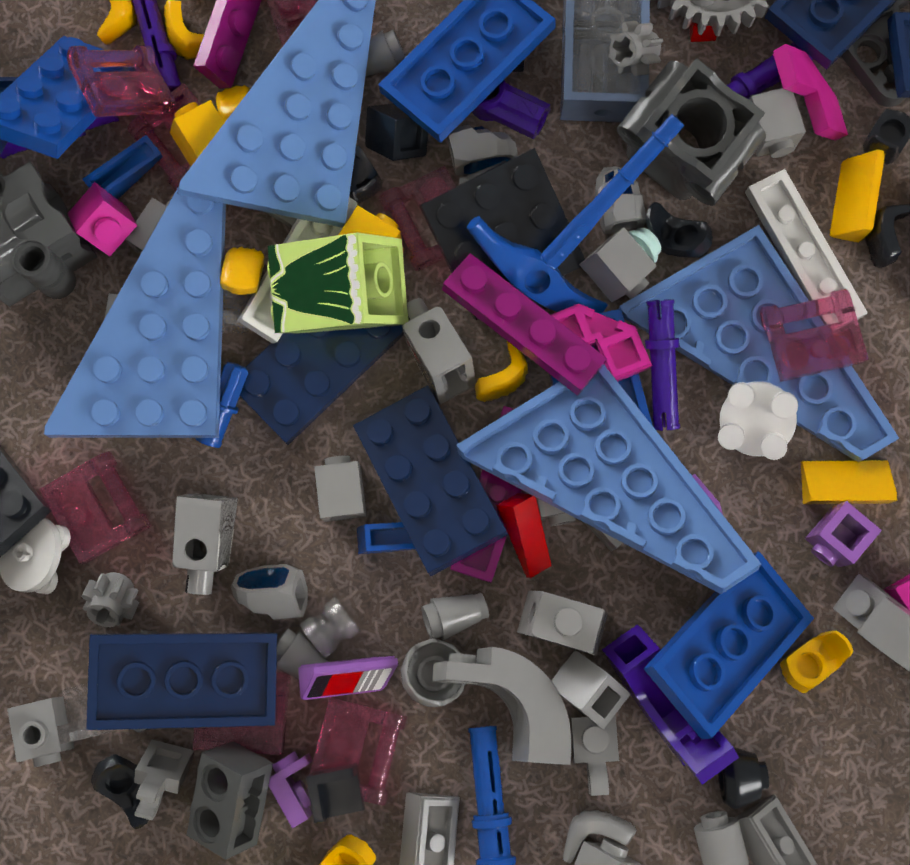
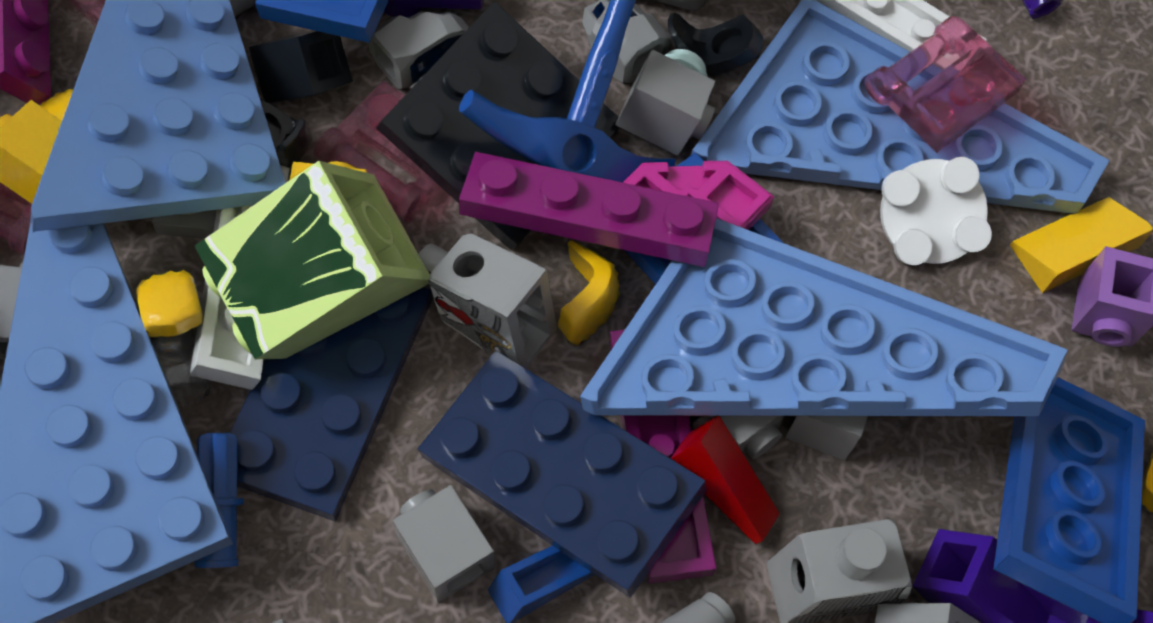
camera: 35 degrees left, 15 degrees down
(663, 361) = (774, 172): dark purple pin -> none

